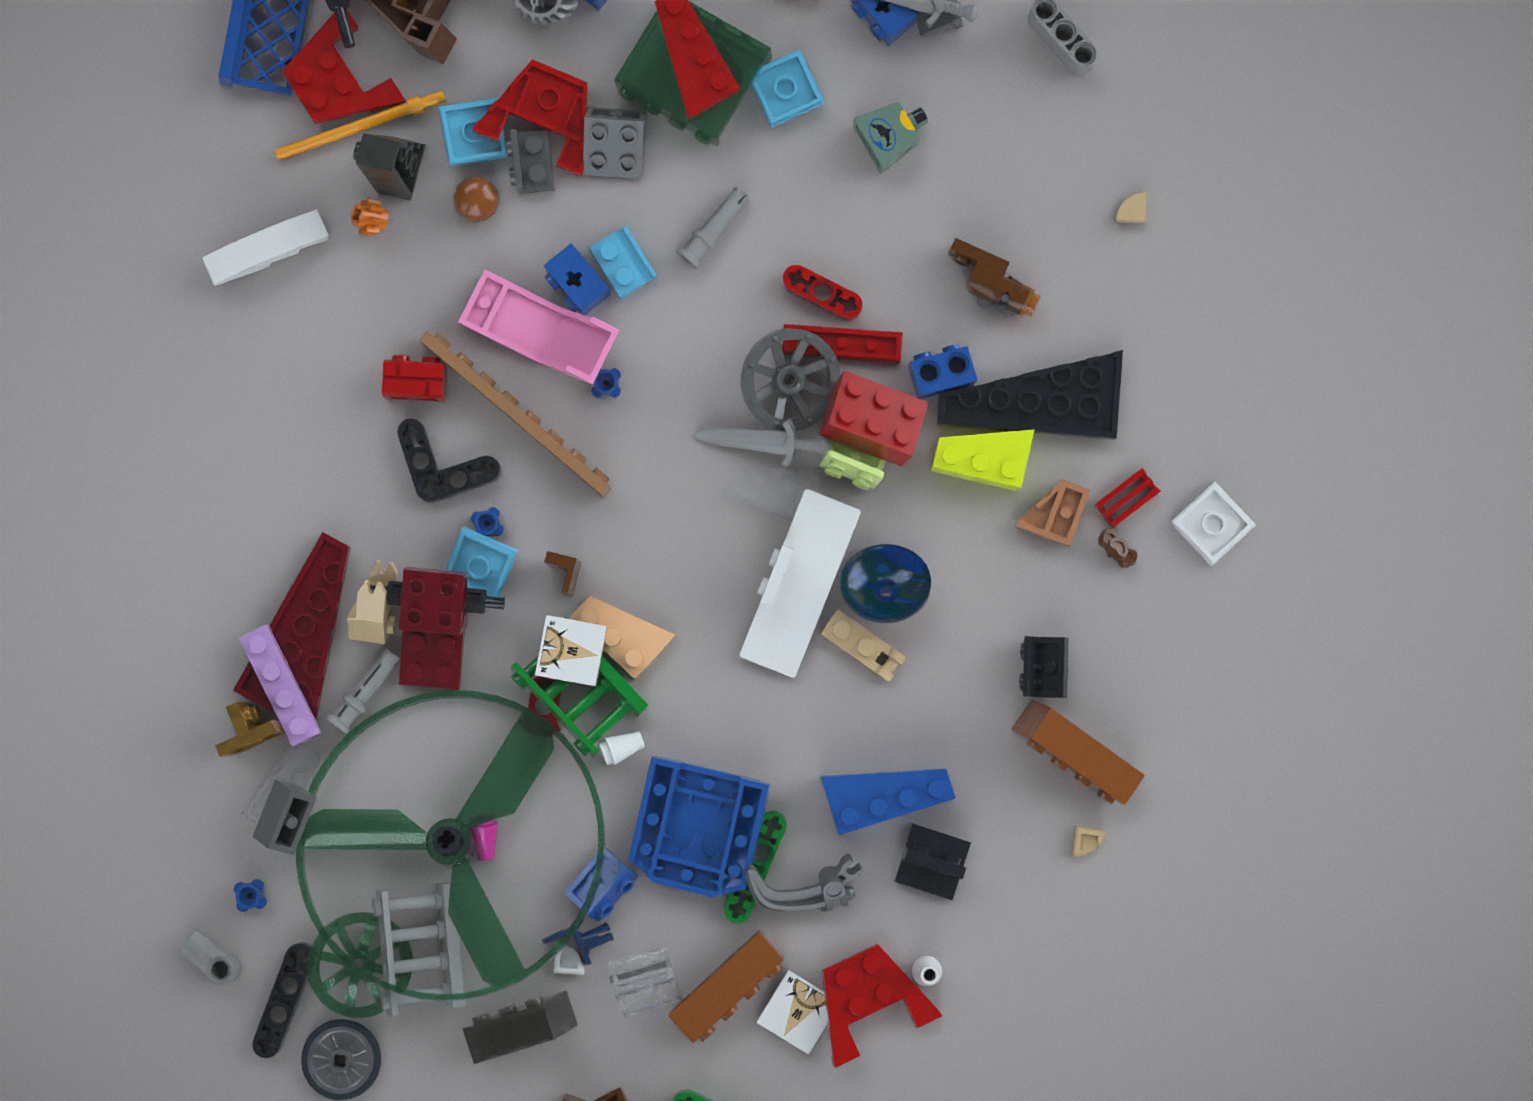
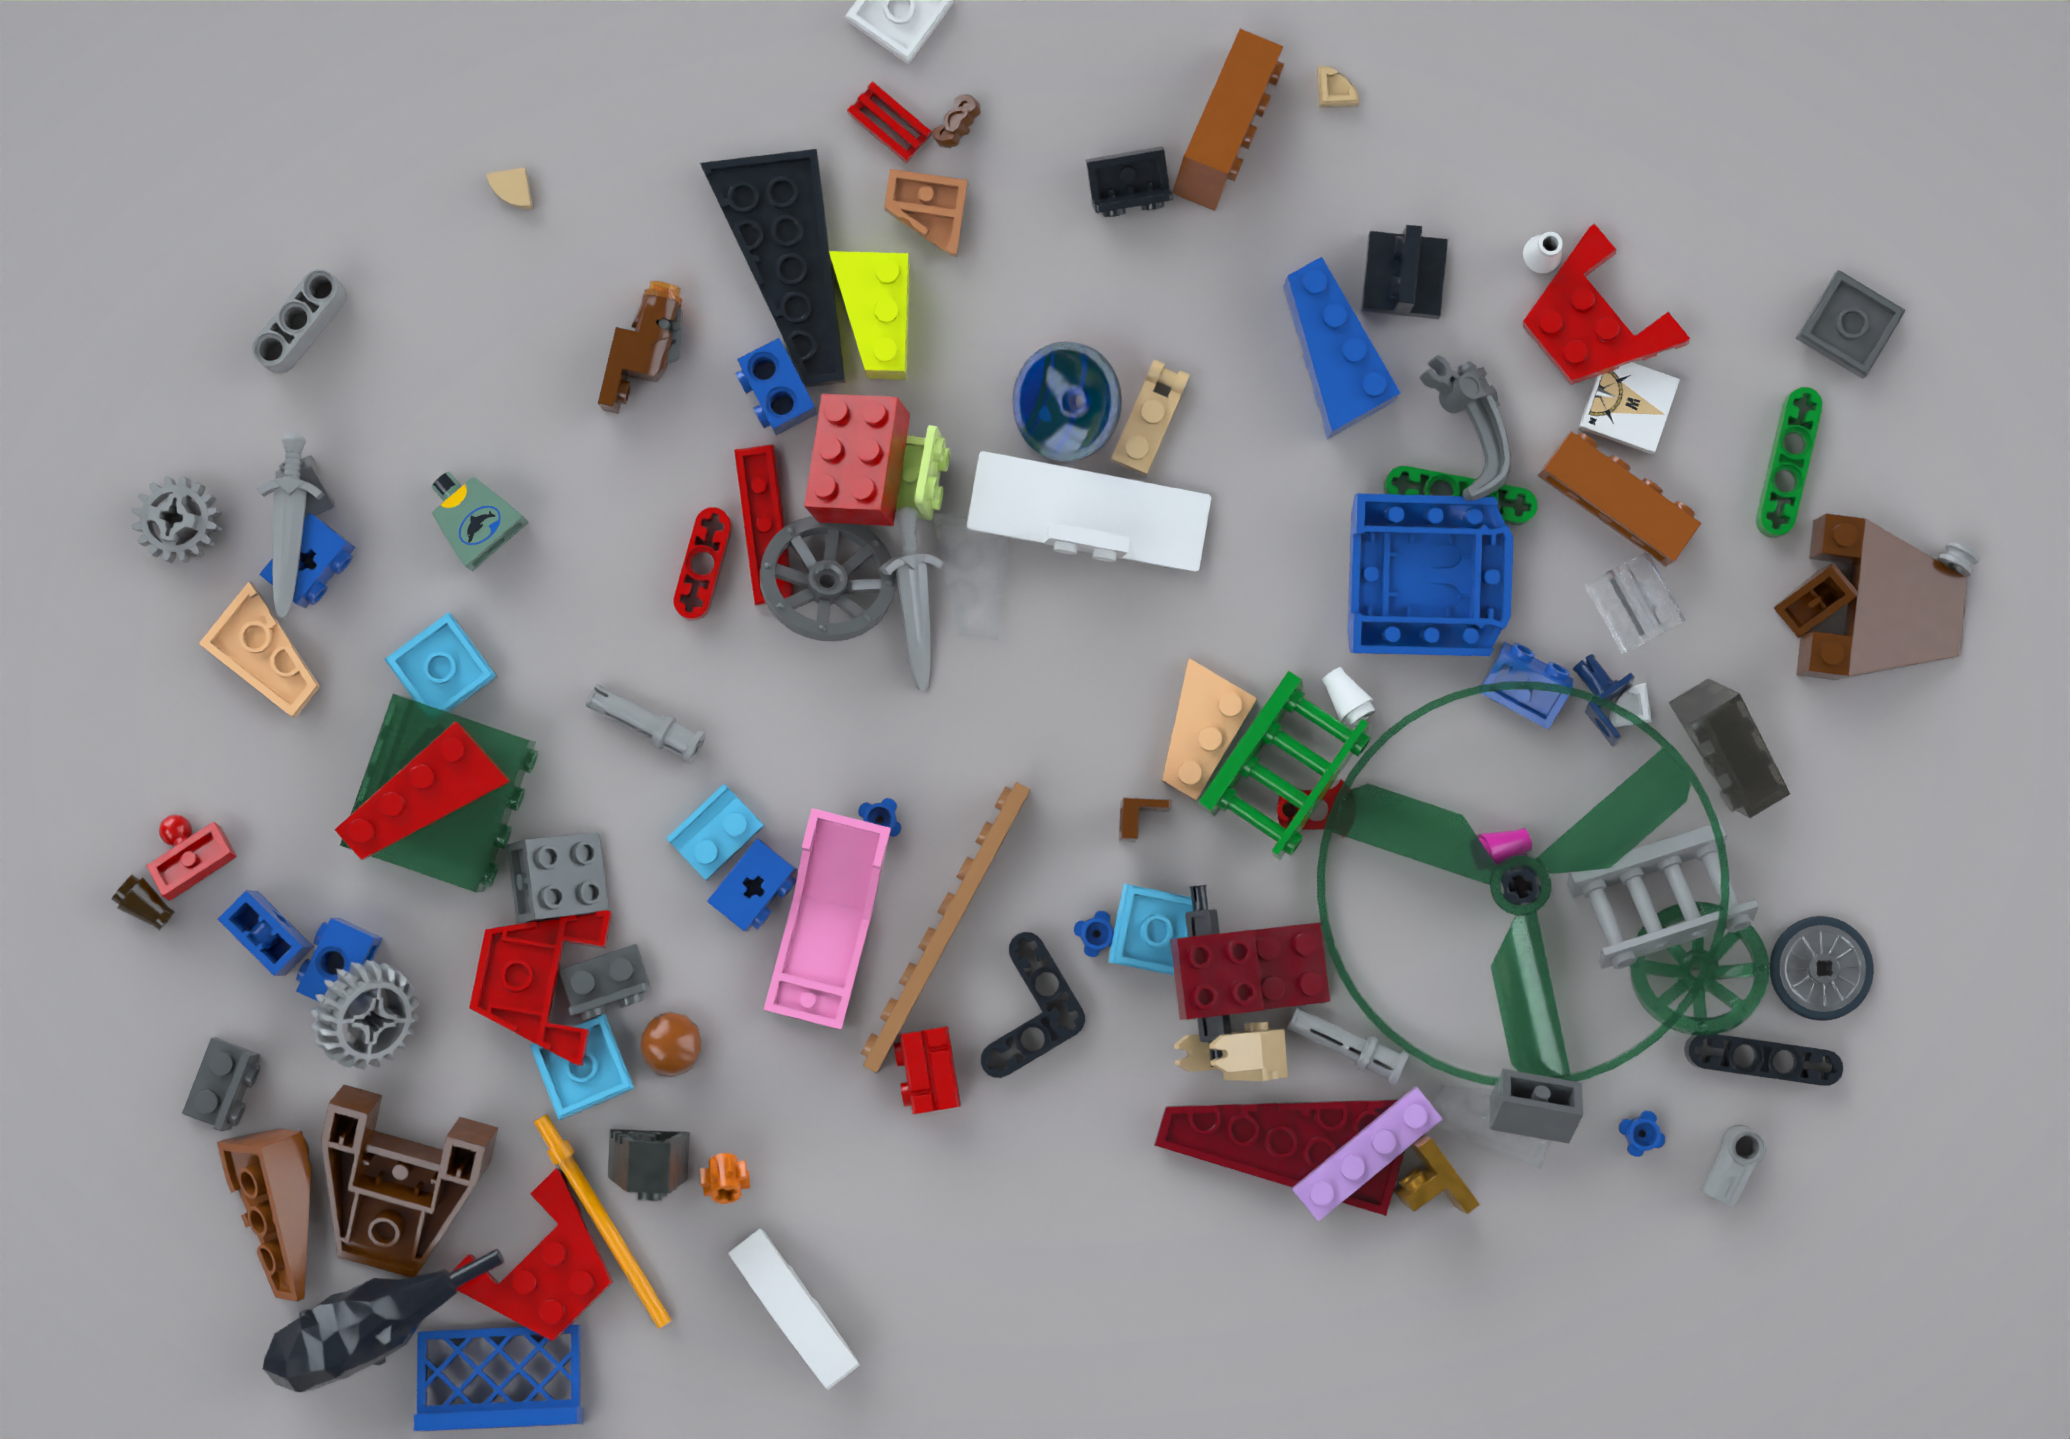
camera: 105 degrees left, 0 degrees up
(571, 650) = (1241, 783): white tile -> none

